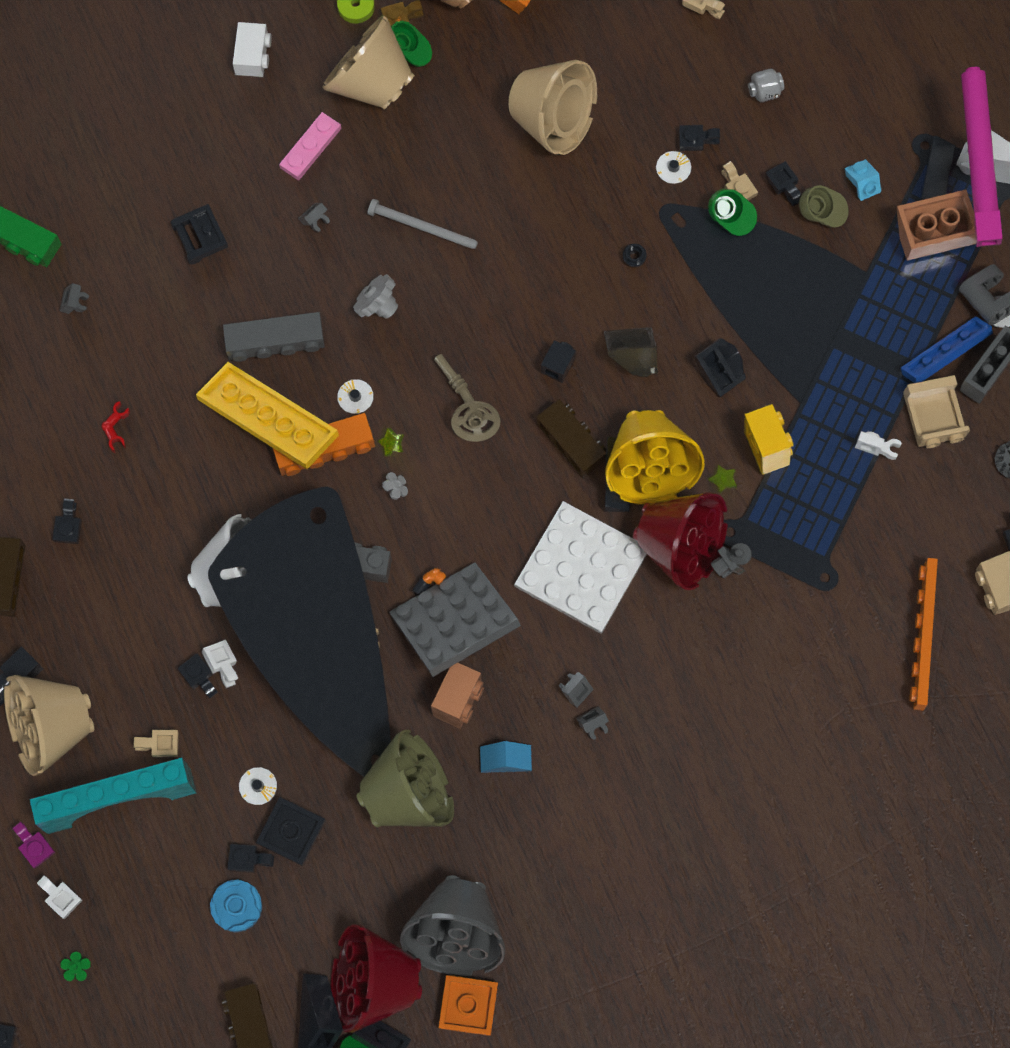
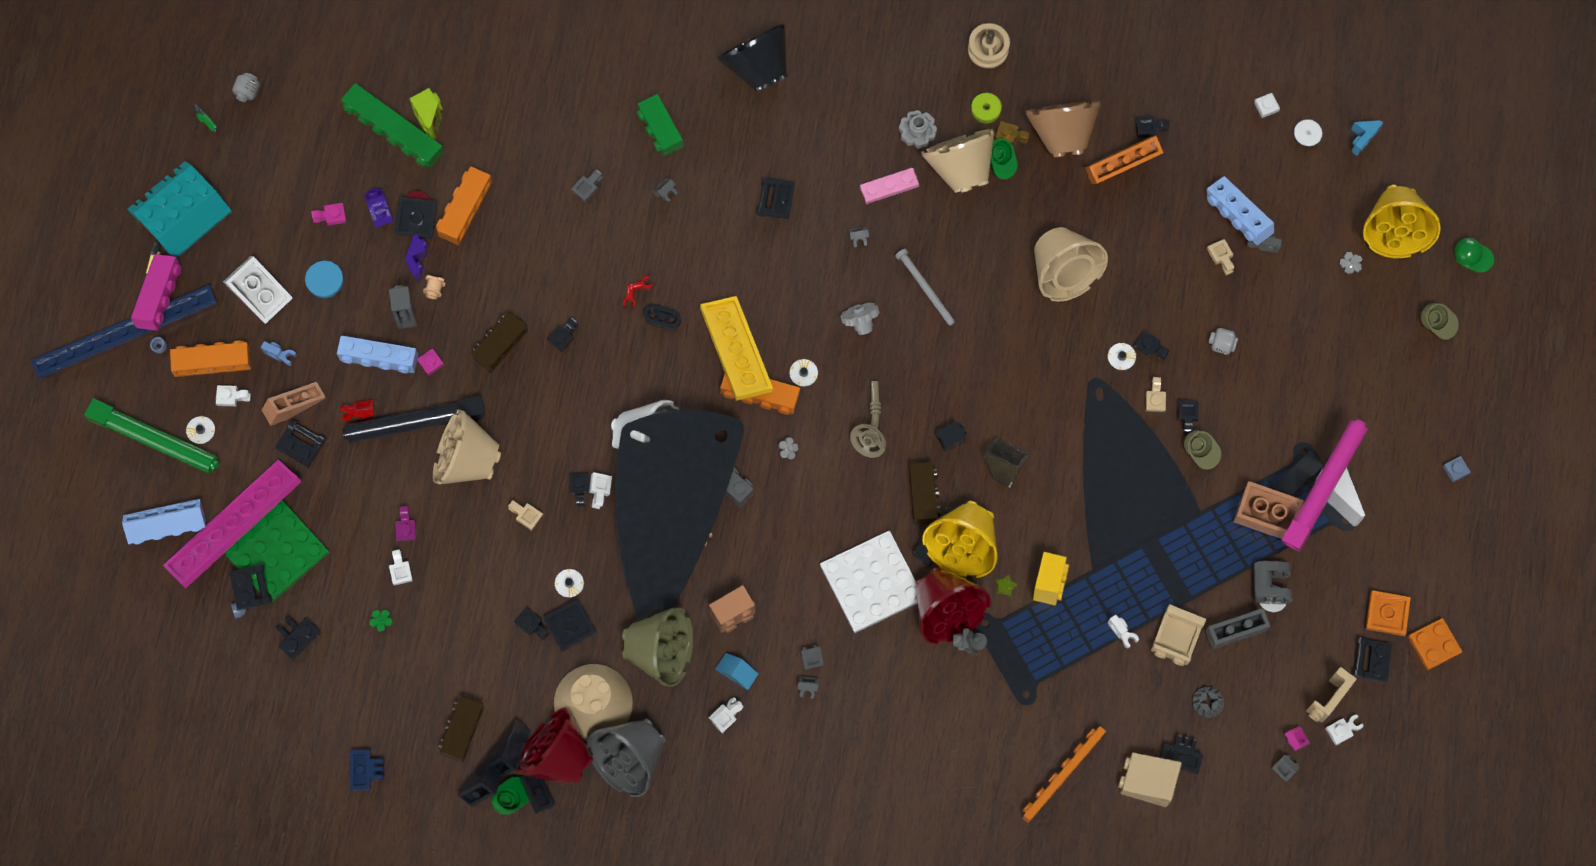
camera: 30 degrees right, 0 degrees up
(62, 808) = (438, 515): teal arch -> none
(83, 99) = (759, 59): none -> black cone
(163, 434) = (663, 315): none -> black plate
(236, 906) = (504, 649): dark azure tile -> none
(250, 49) = (894, 95): white brick -> none
(274, 336) = (776, 299): dark grey brick -> none
(300, 69) = (917, 129): none -> light grey plant
(373, 890) = (595, 698): none -> tan cone
(391, 442) = (805, 418): clear neon green piece -> none
(427, 579) = (765, 523): arm -> none
(454, 619) = (764, 559): dark grey plate -> none
(468, 1005) = (605, 809): orange plate -> none
(527, 815) = (724, 716): none -> white plate
(634, 249) = (1052, 393): black plate -> none
(721, 366) = (1056, 510): black slope -> none
(732, 211) = (1137, 412): green cap -> none
(864, 178) = (1243, 448): medium azure bracket -> none
(946, 350) = (1215, 599): blue plate -> none

